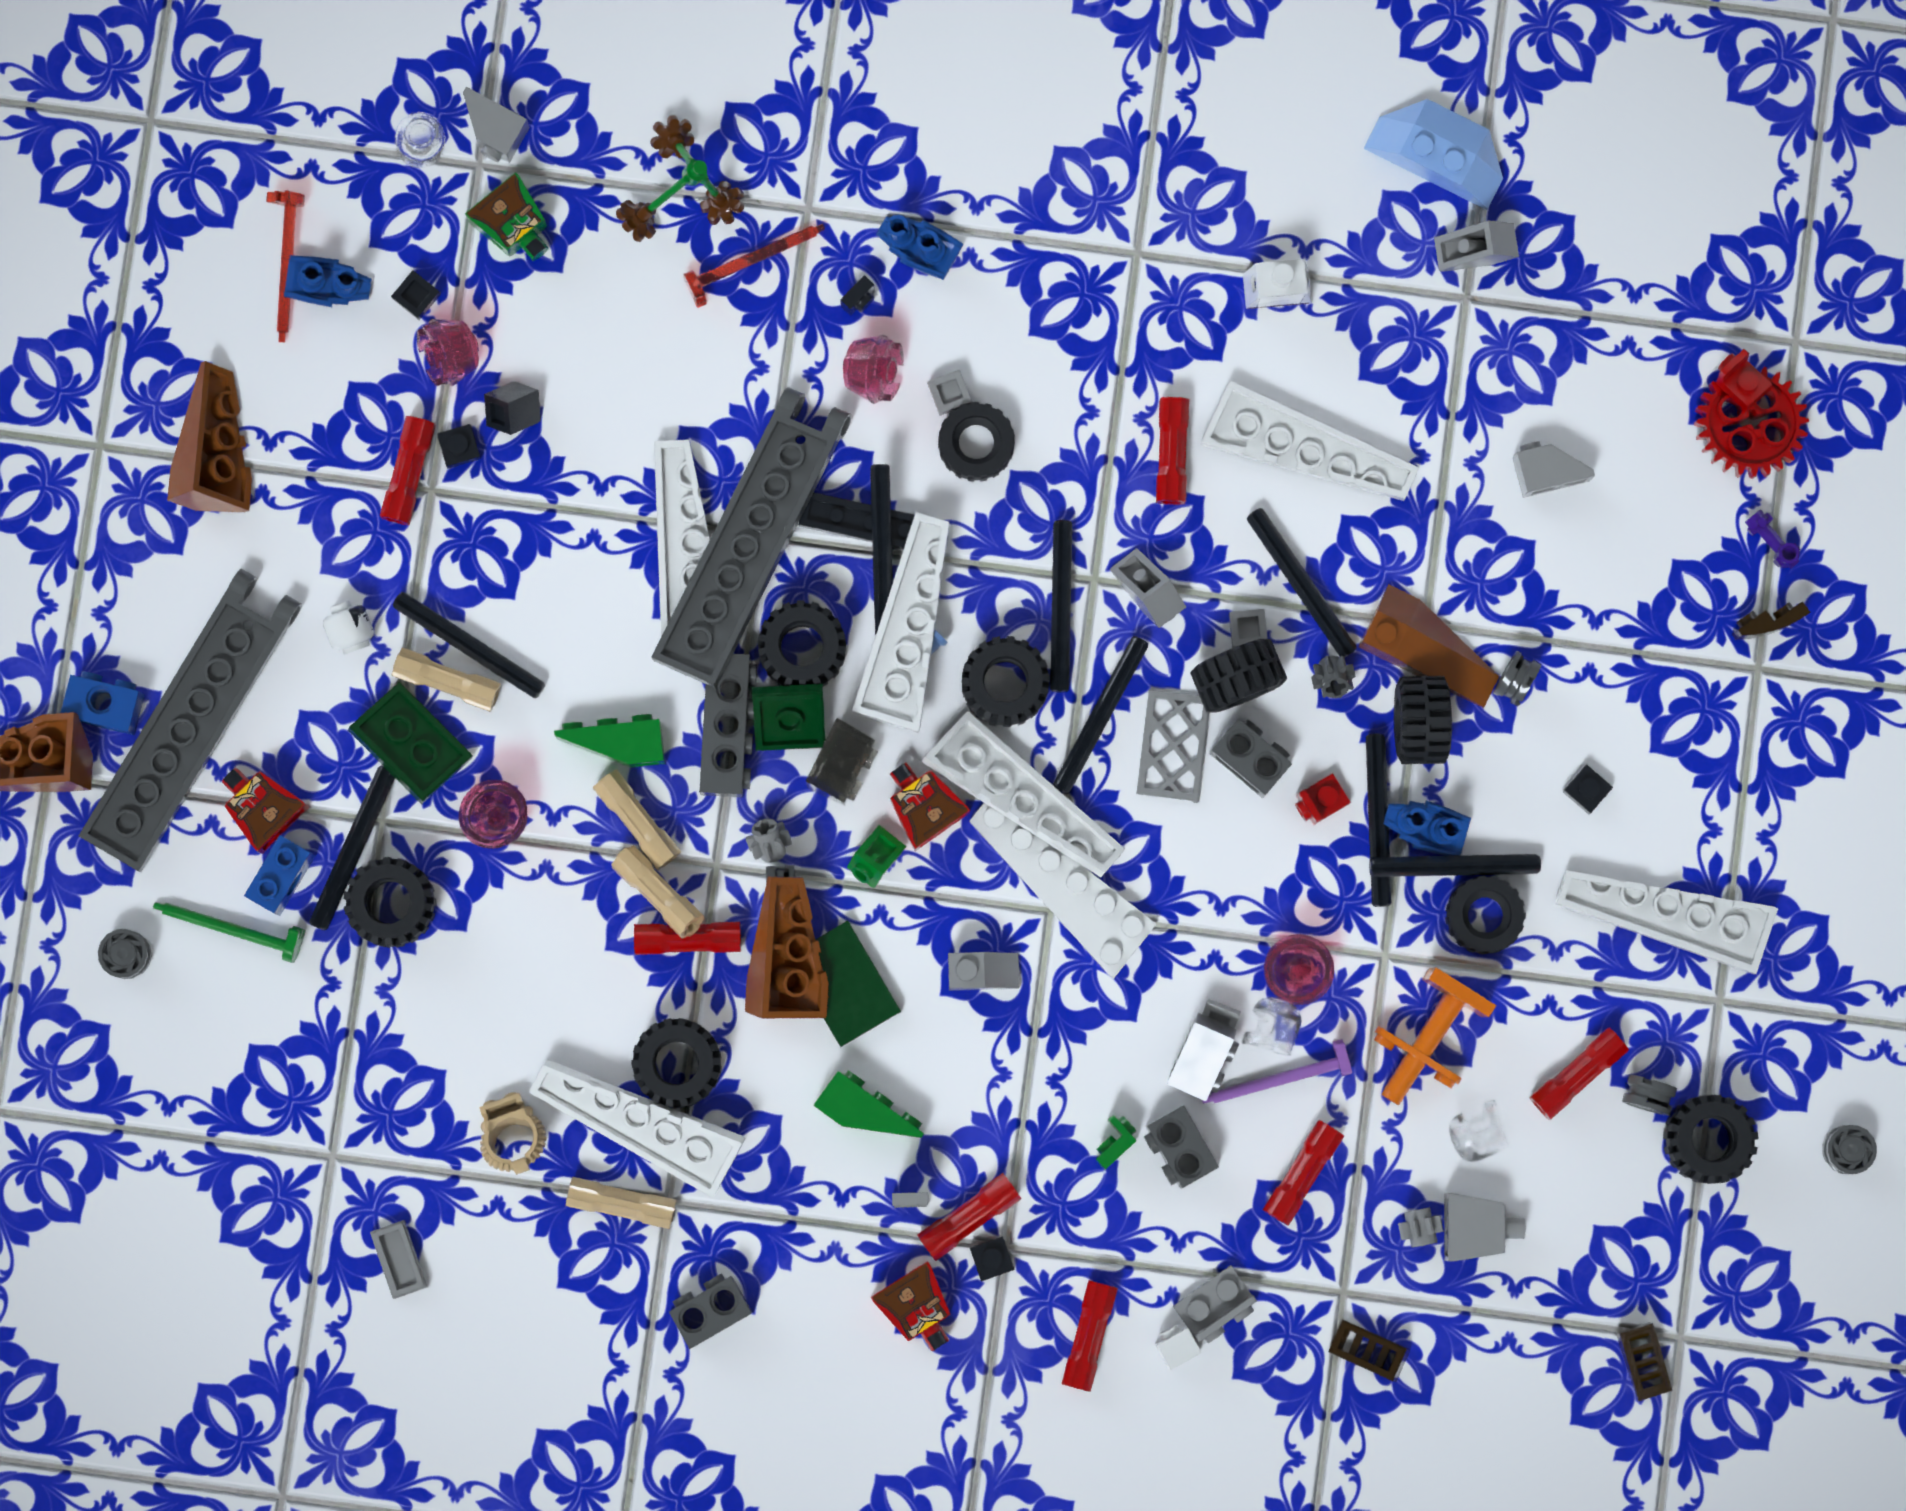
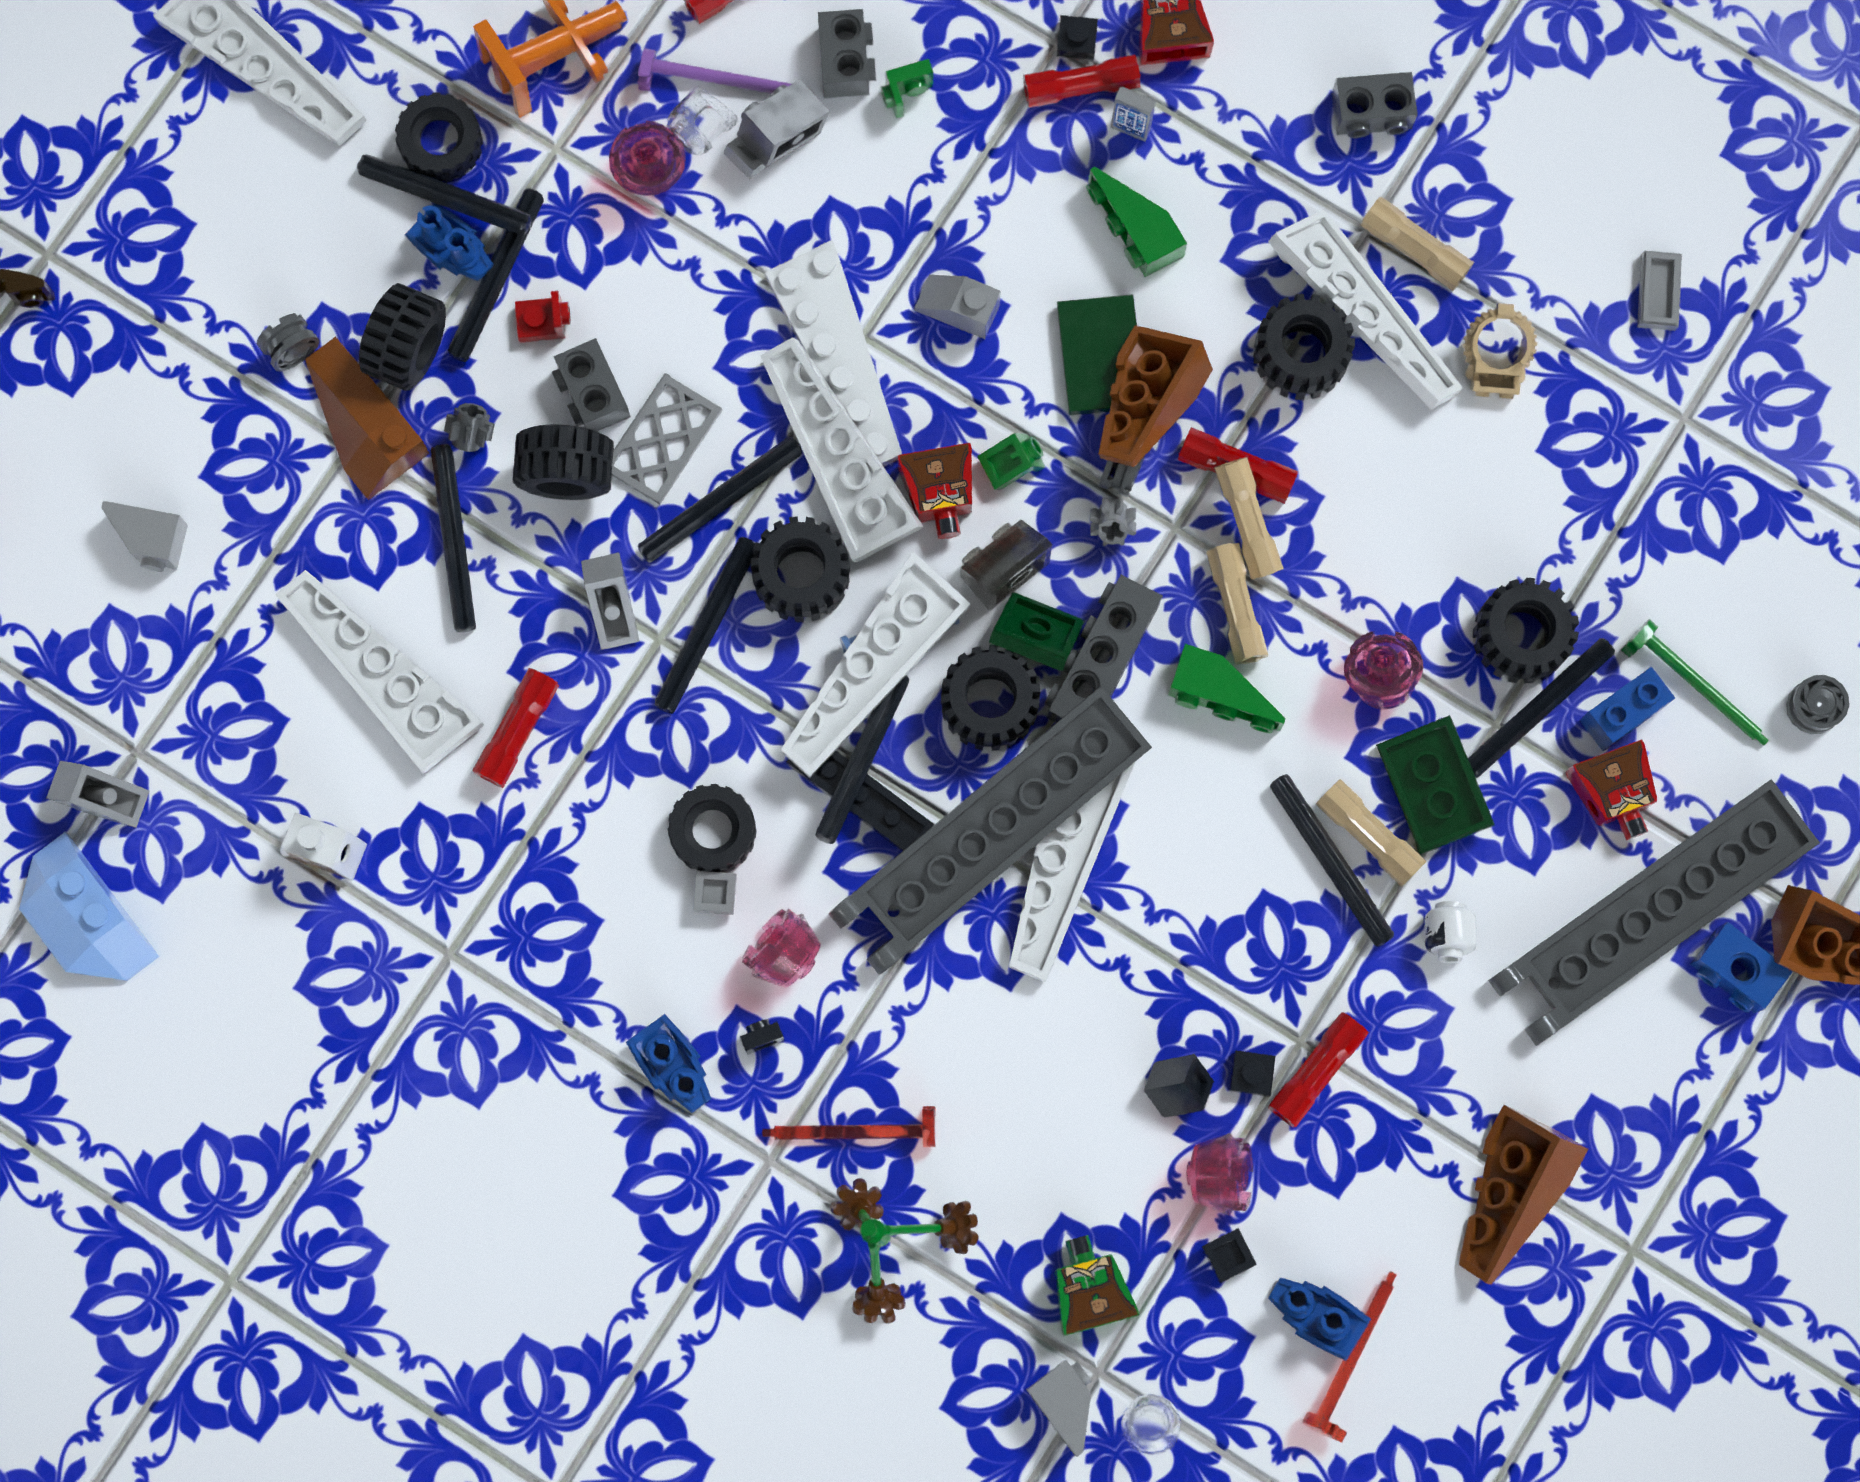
camera: 150 degrees left, 5 degrees down
(1247, 626) = (529, 515): light grey plate -> none
(1587, 789) = (276, 212): black plate -> none

